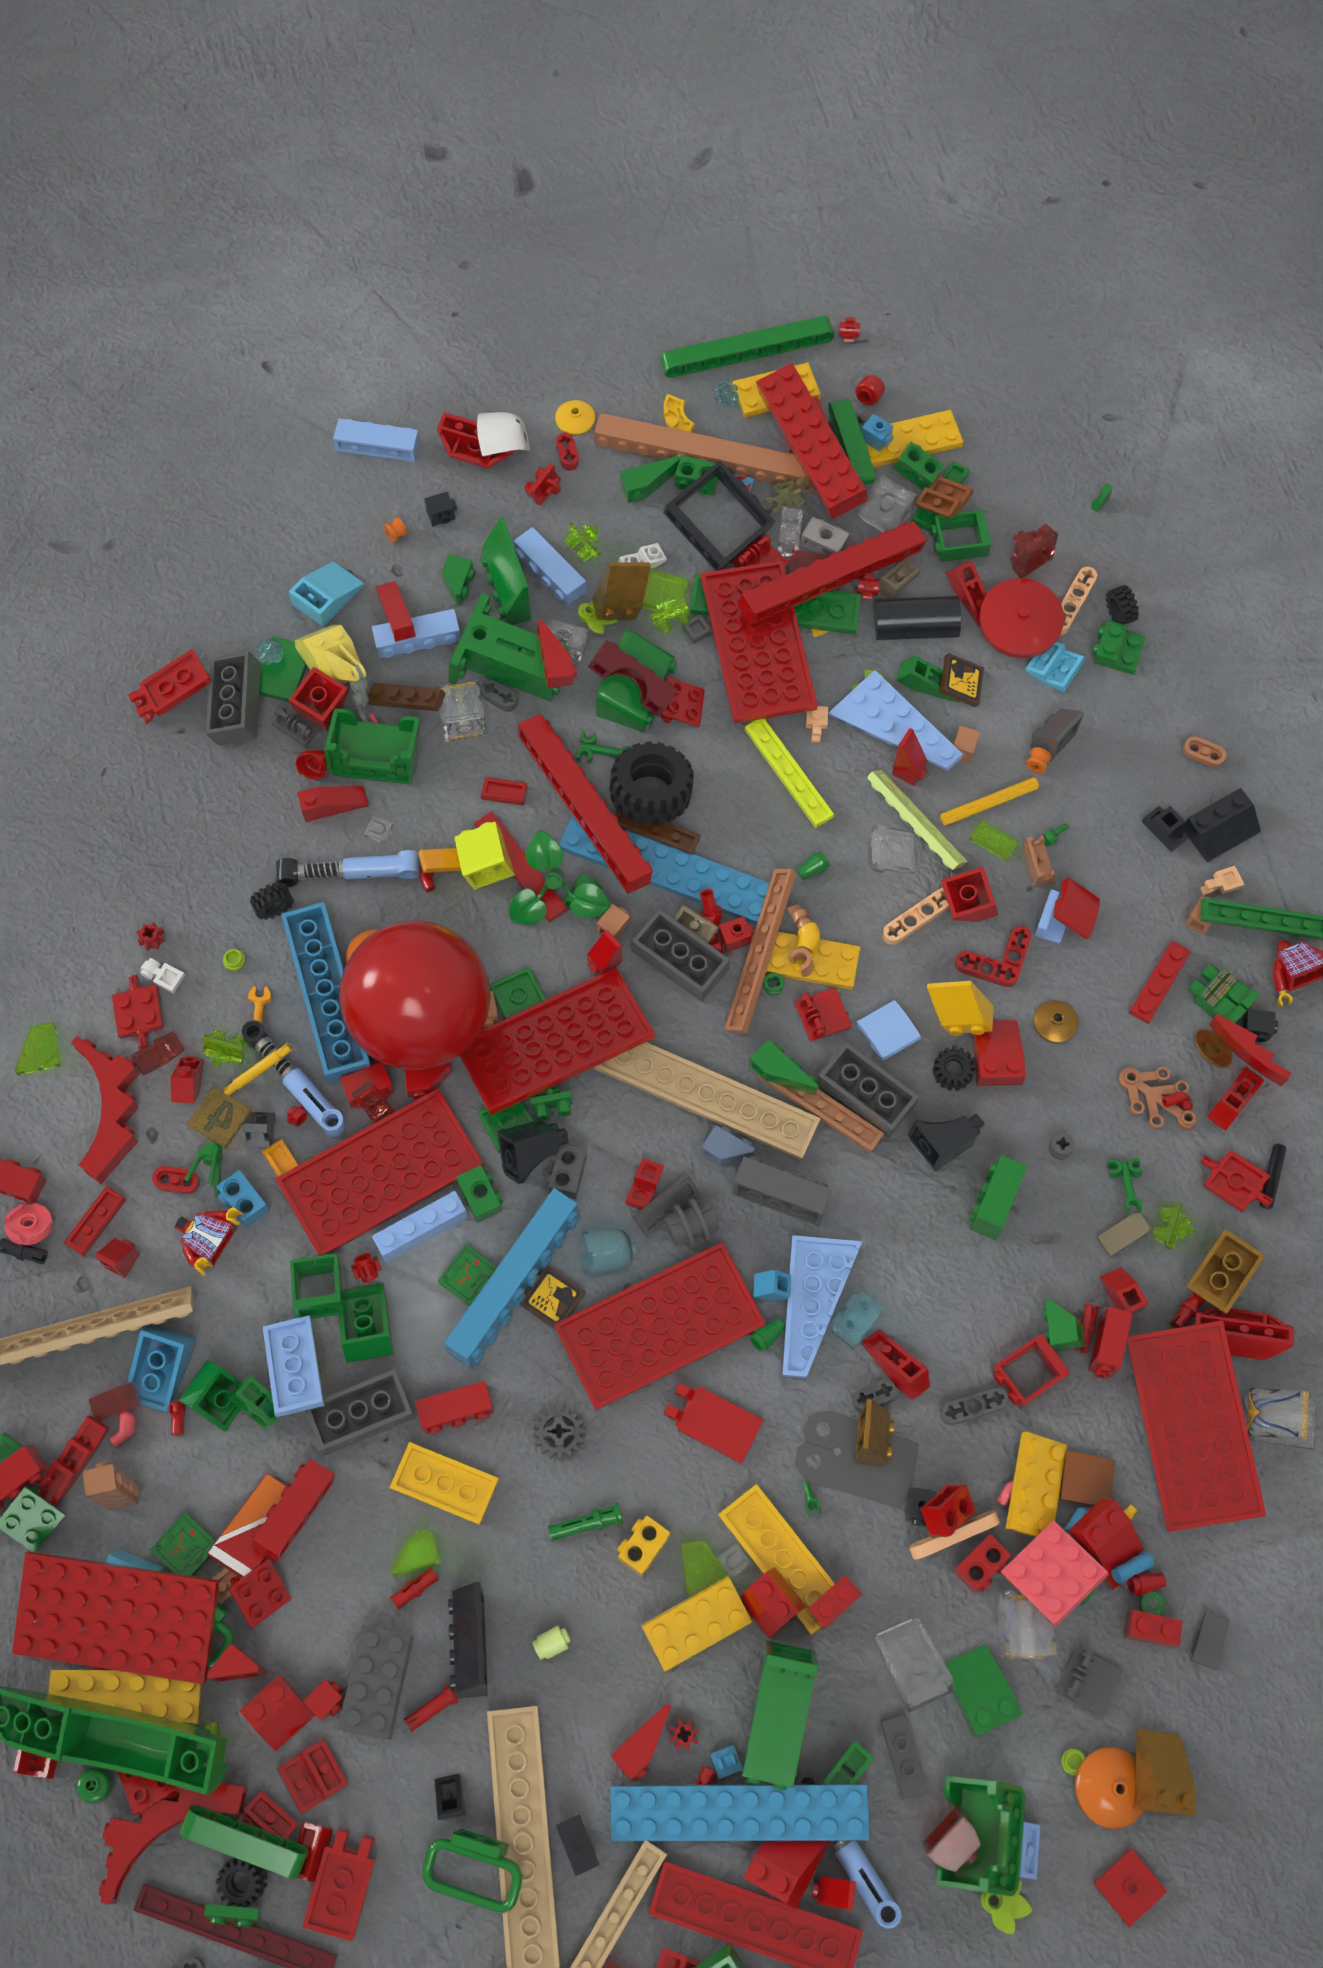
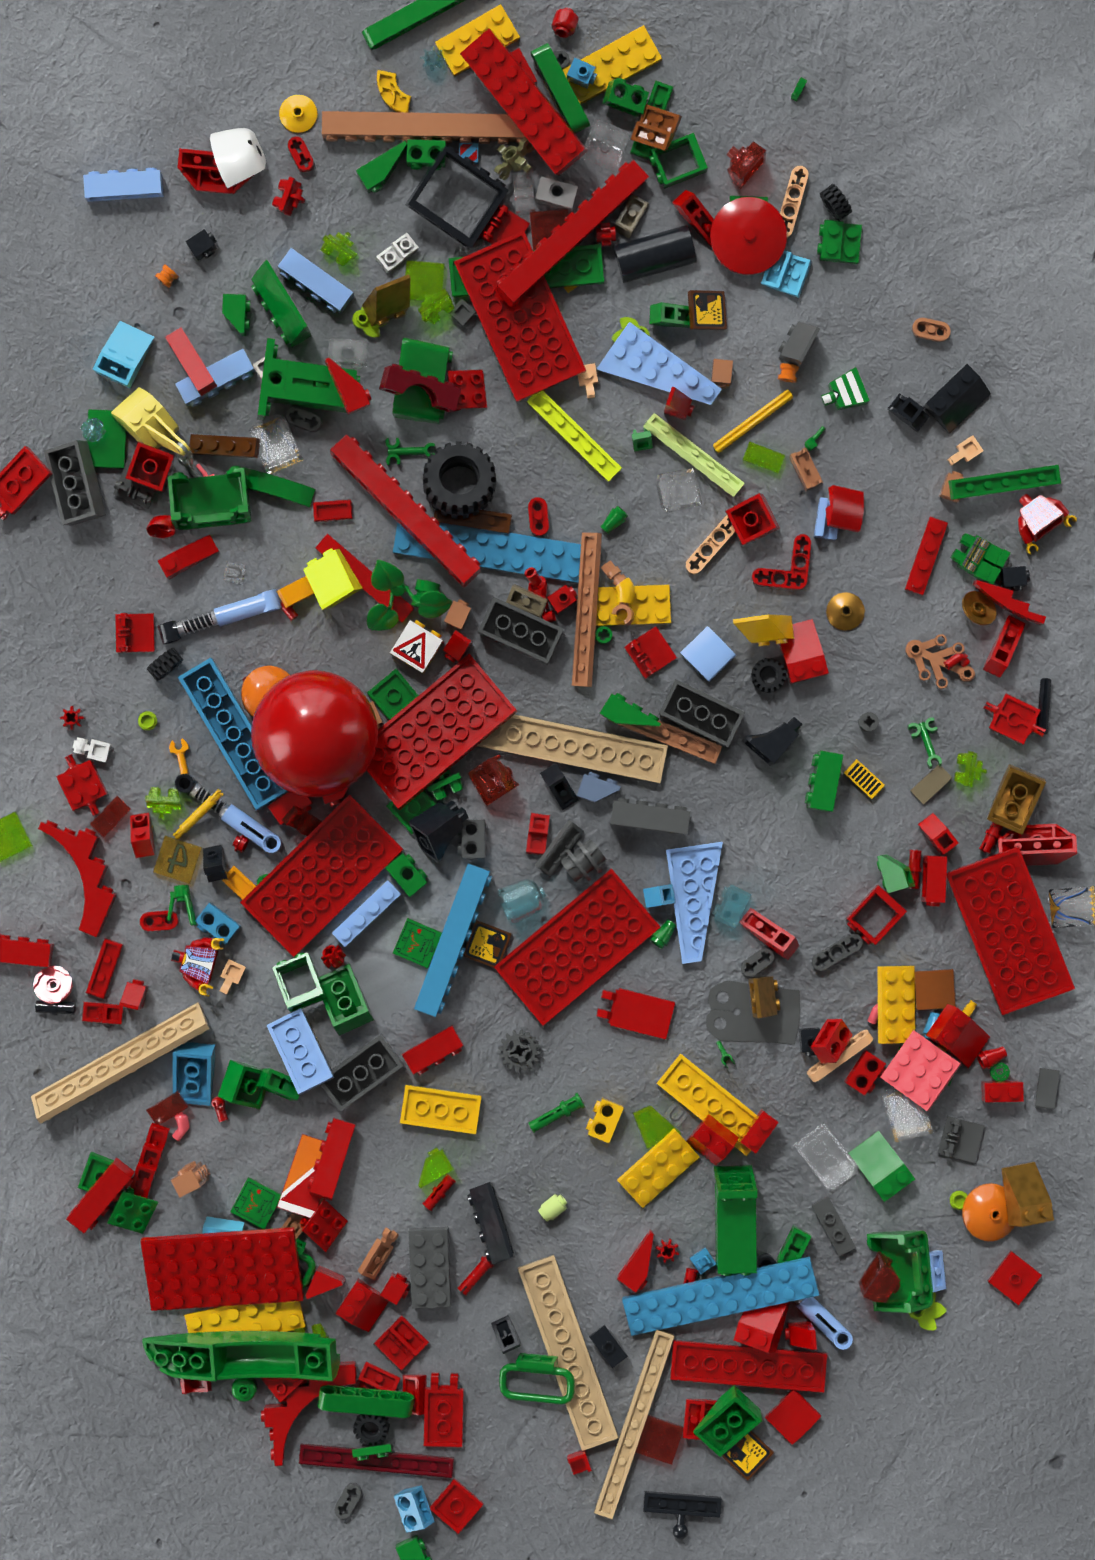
camera: 10 degrees left, 20 degrees up
(75, 1271) = (102, 1012): none -> red slope
(240, 1260) = (232, 973): none -> light nougat plate
(249, 865) = (134, 632): none -> red hinge
(315, 1650) = (378, 1254): none -> nougat plate
(454, 754) = (279, 487): none -> green slope
(558, 947) = (417, 646): none -> white piece
(607, 1108) = (492, 779): none -> clear red brick
(683, 1135) = (559, 786): none -> black slope
(729, 846) = (538, 516): none -> red plate
(862, 792) = (642, 440): none -> green tile
(1044, 1210) = (864, 779): none -> tile
(1100, 792) = (846, 391): none -> green torso
(1132, 1567) = (979, 1050): dark azure piece -> none

